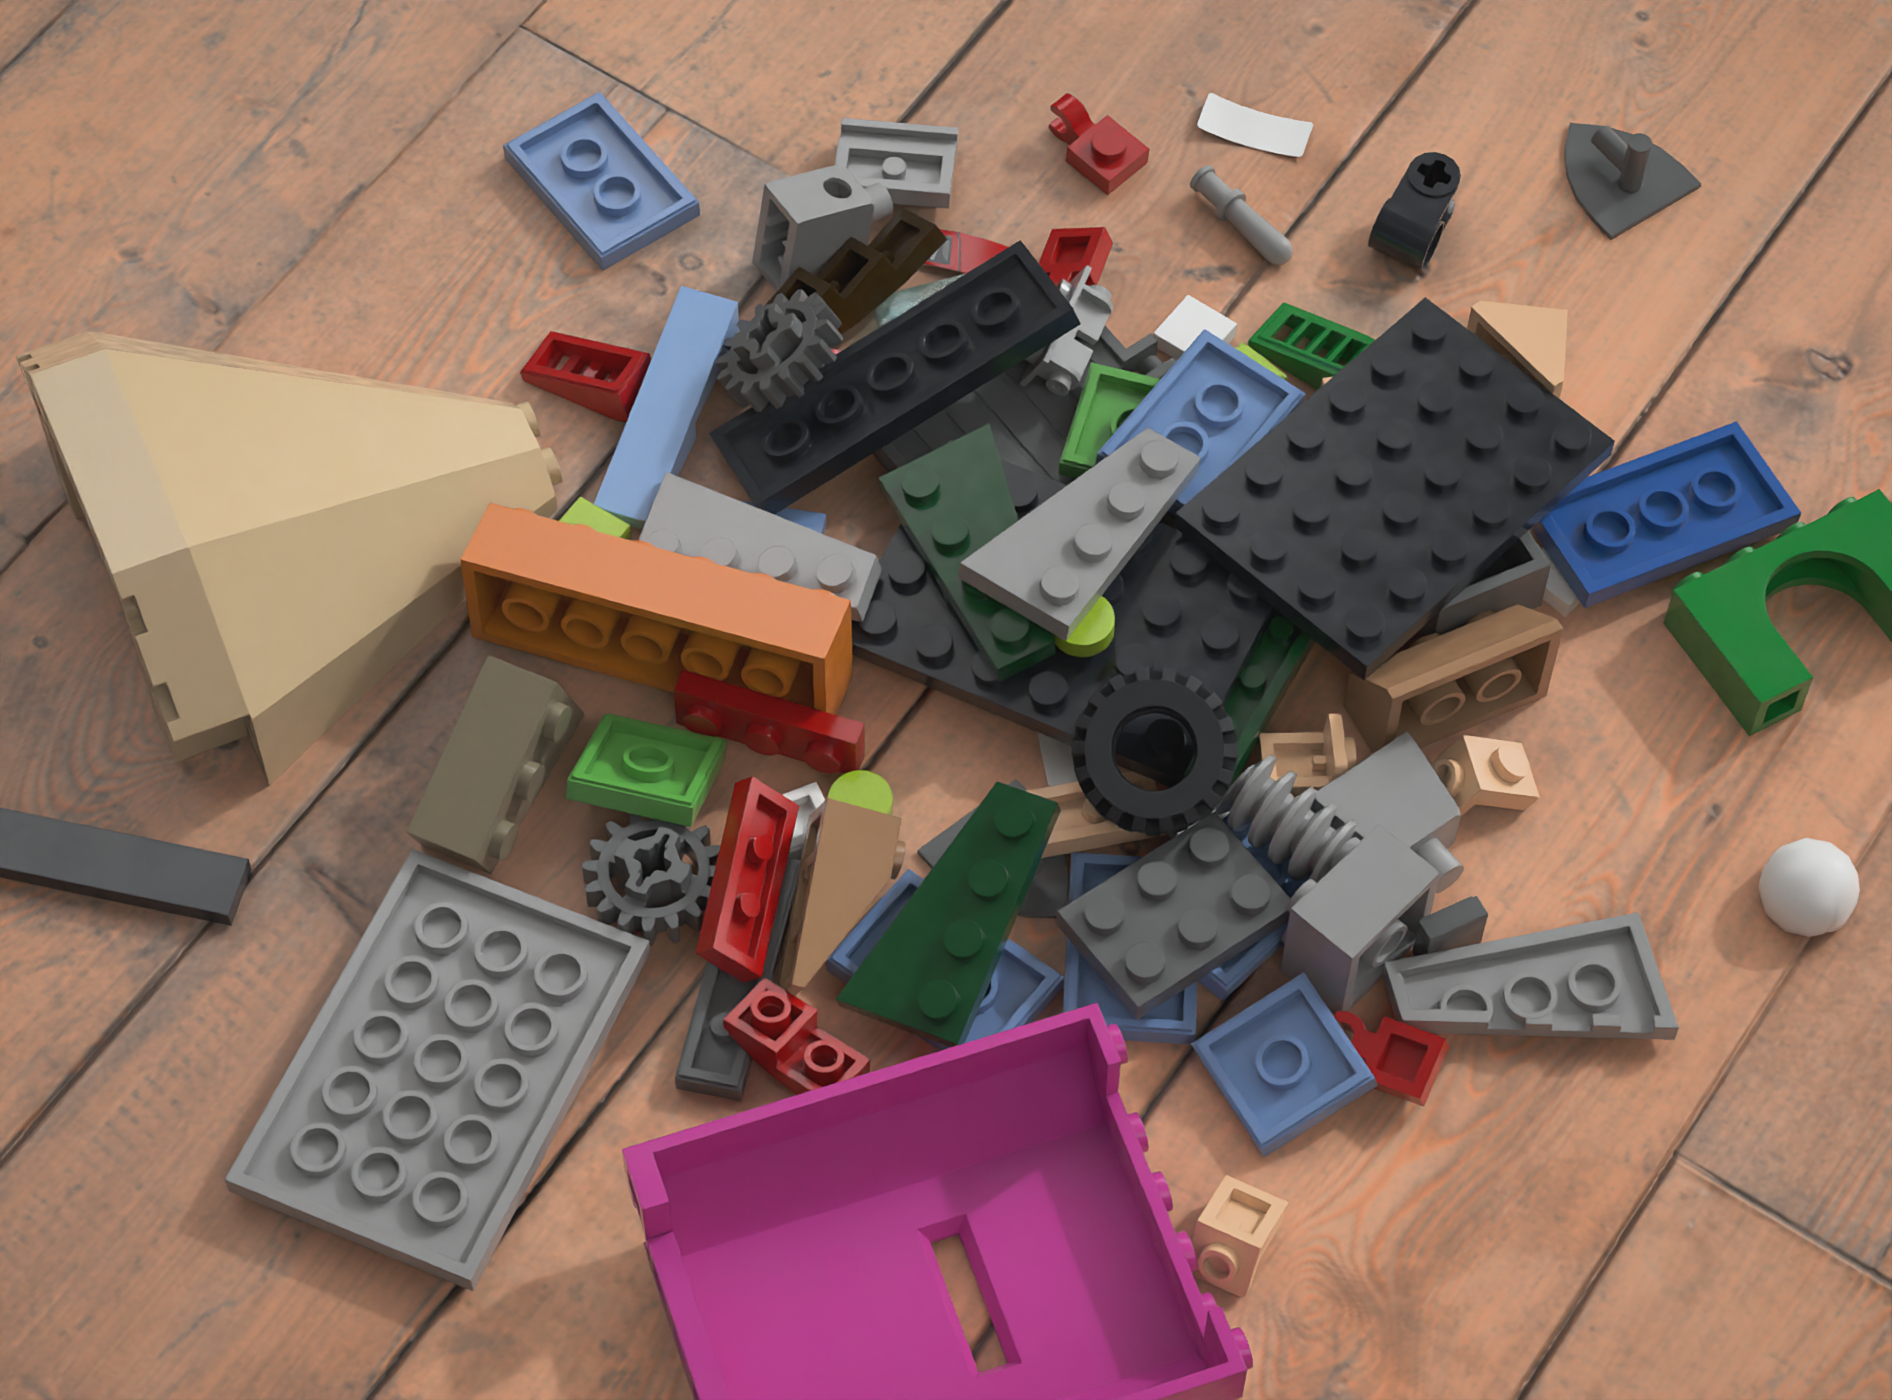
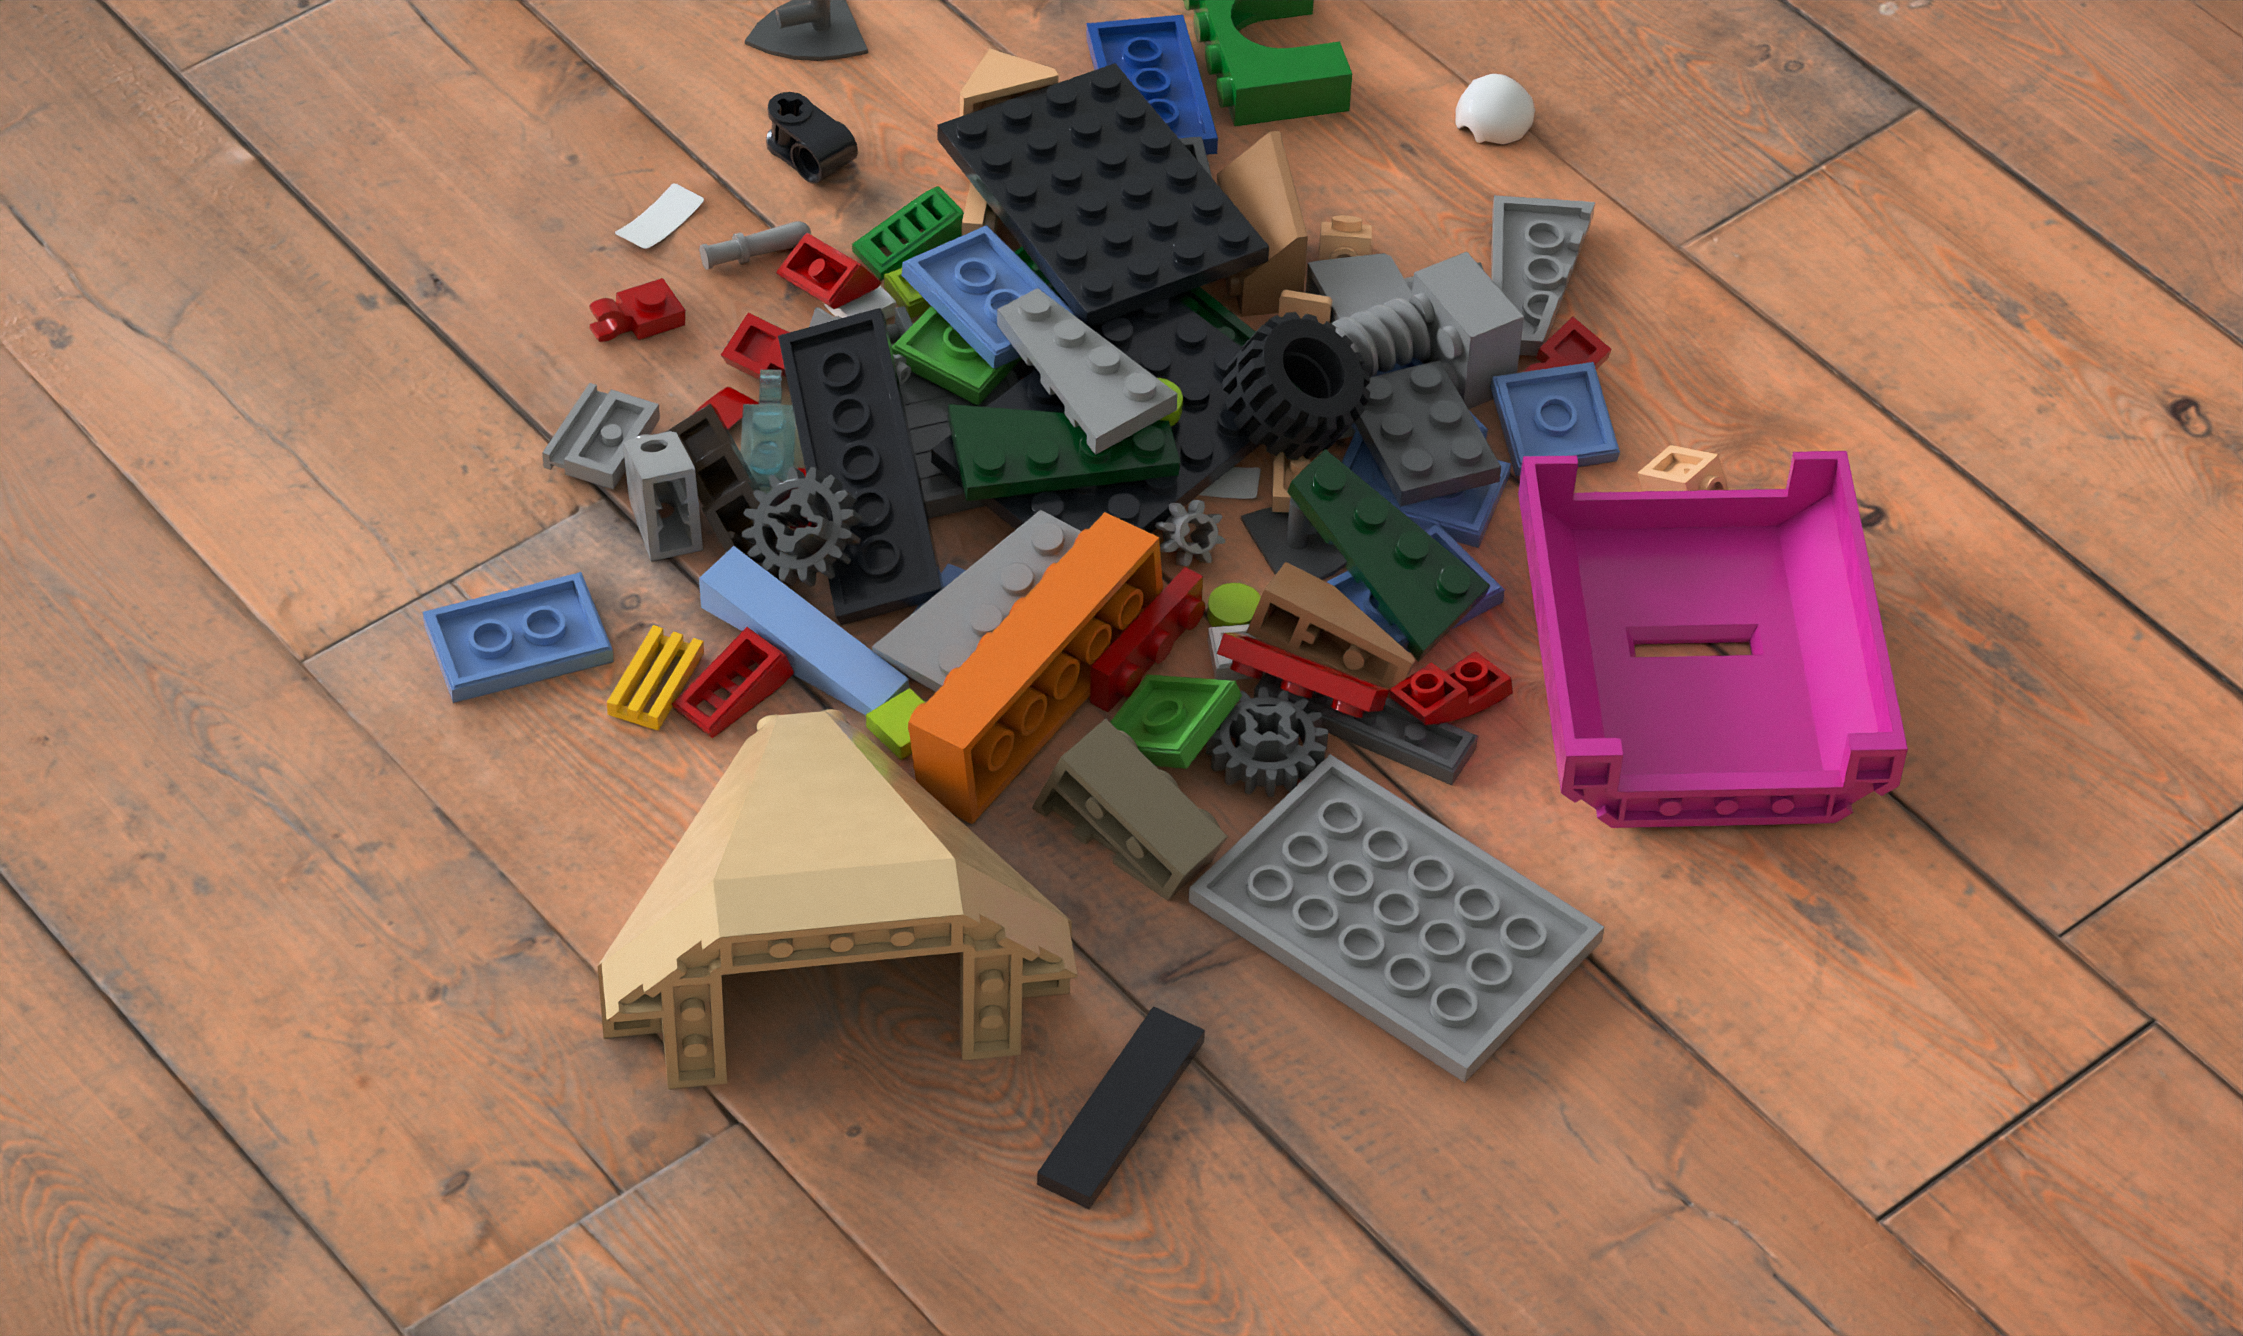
camera: 75 degrees left, 10 degrees down
(582, 299) = (669, 646): none -> yellow tile
(941, 724) = (1203, 537): none -> light grey gear
(1216, 288) = (826, 273): none -> red slope

